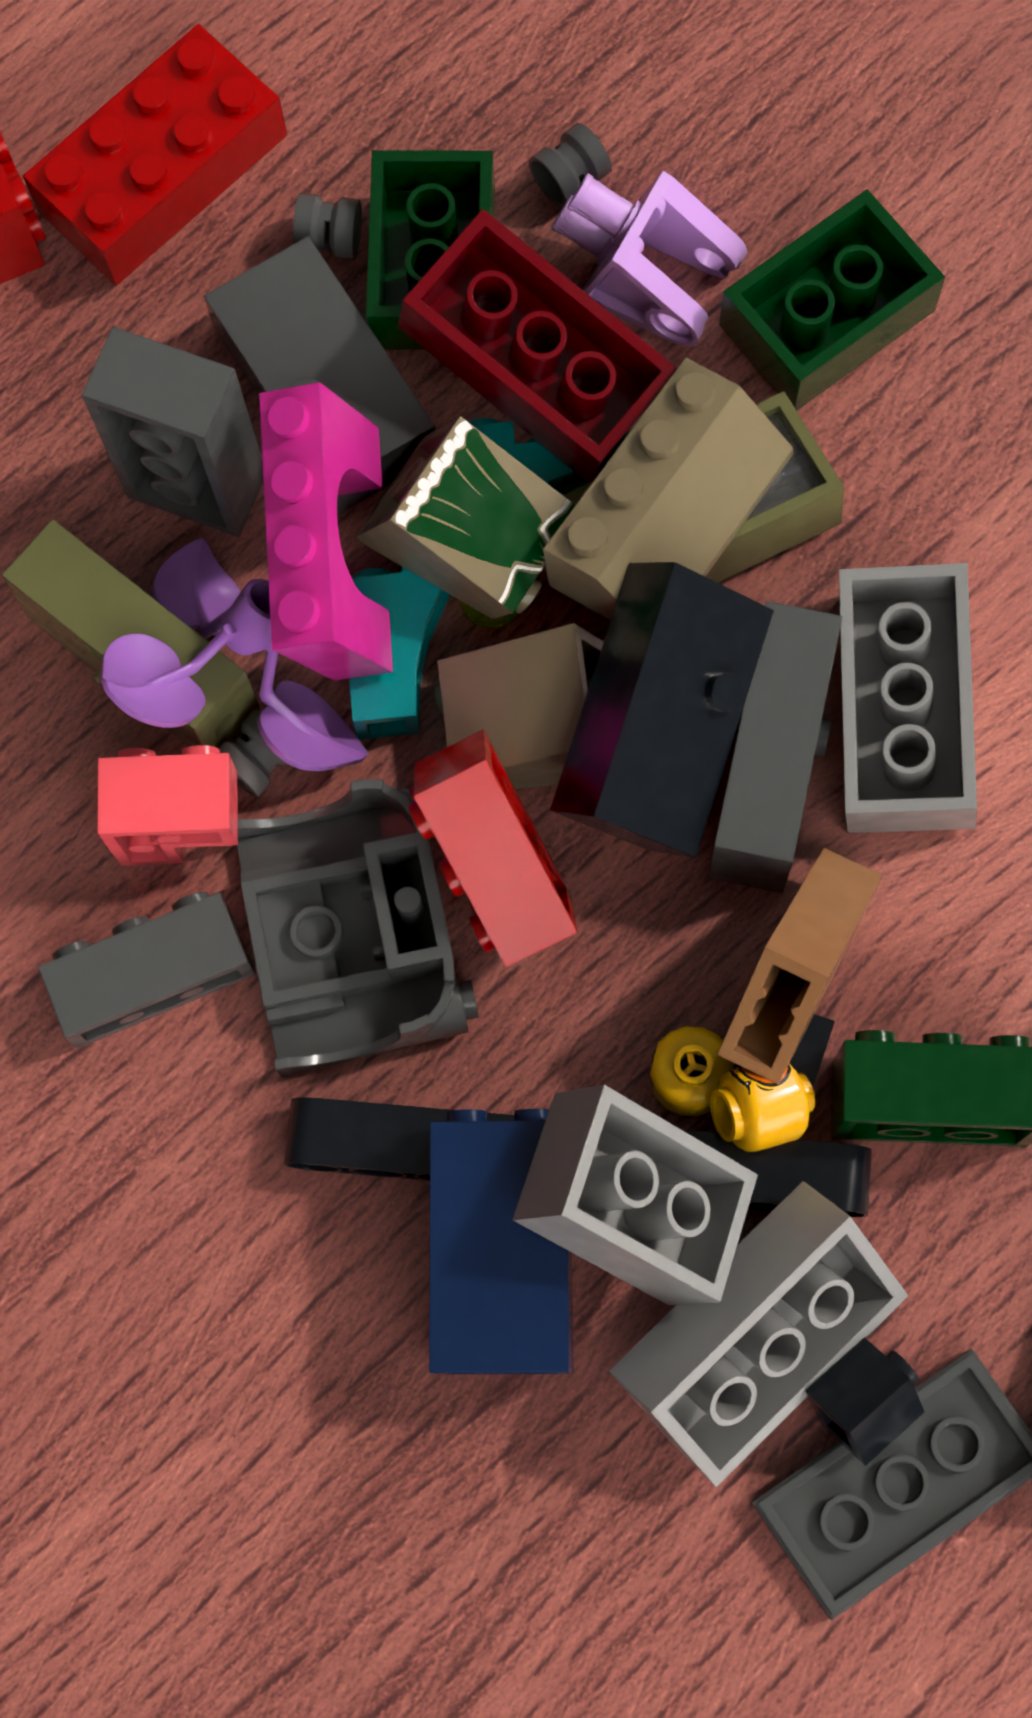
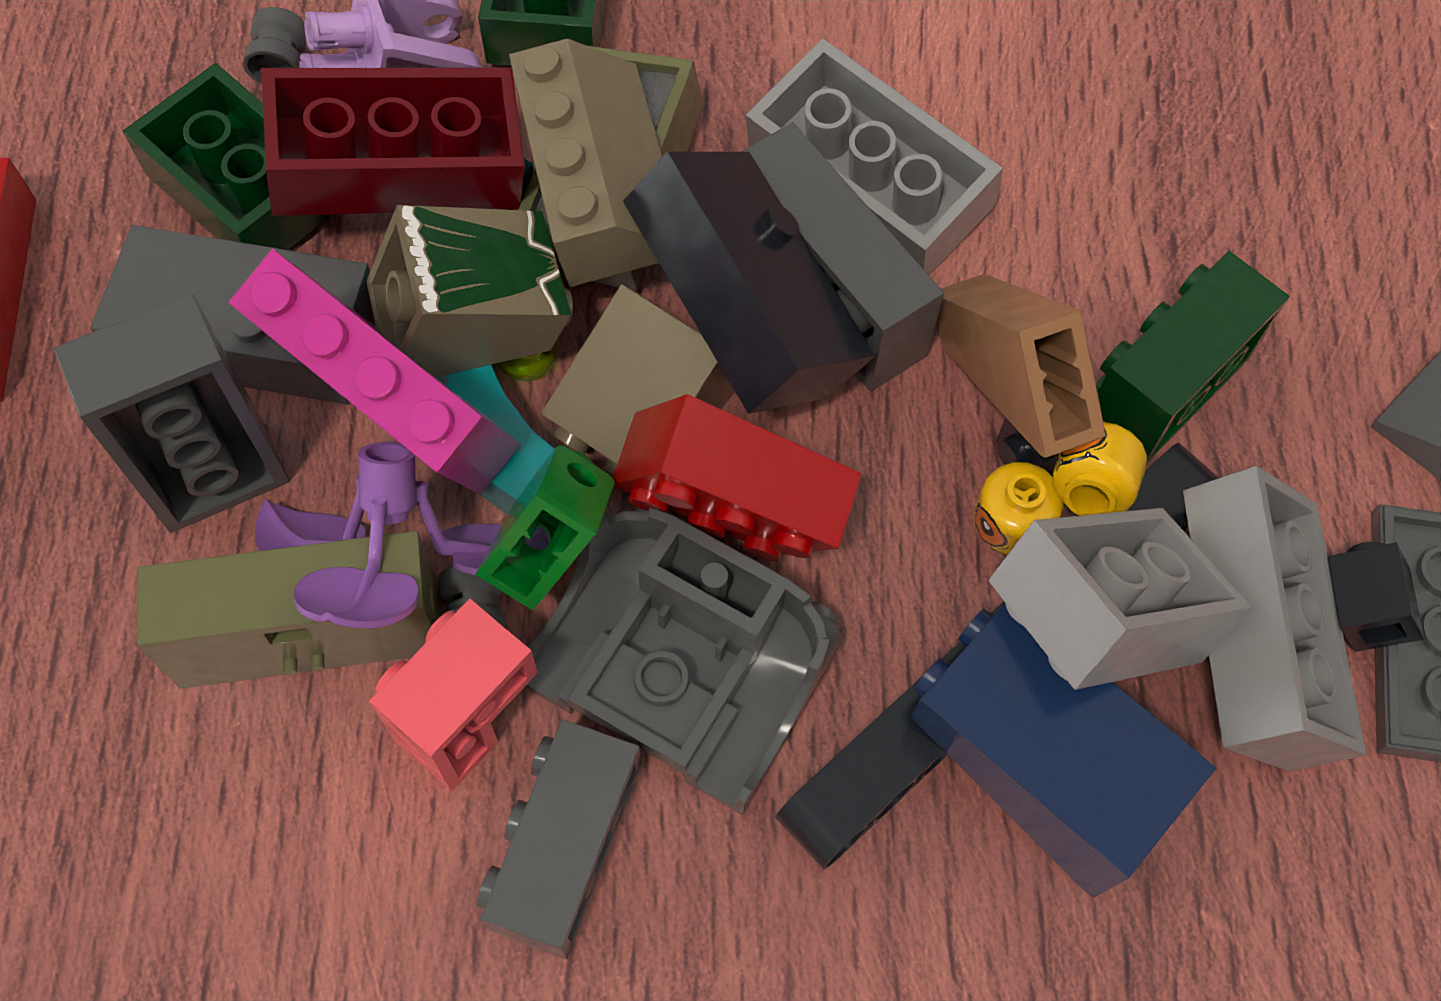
camera: 55 degrees left, 10 degrees down
(329, 224) = (143, 201): dark grey wheel -> none
(339, 751) = (564, 501): none -> green torso

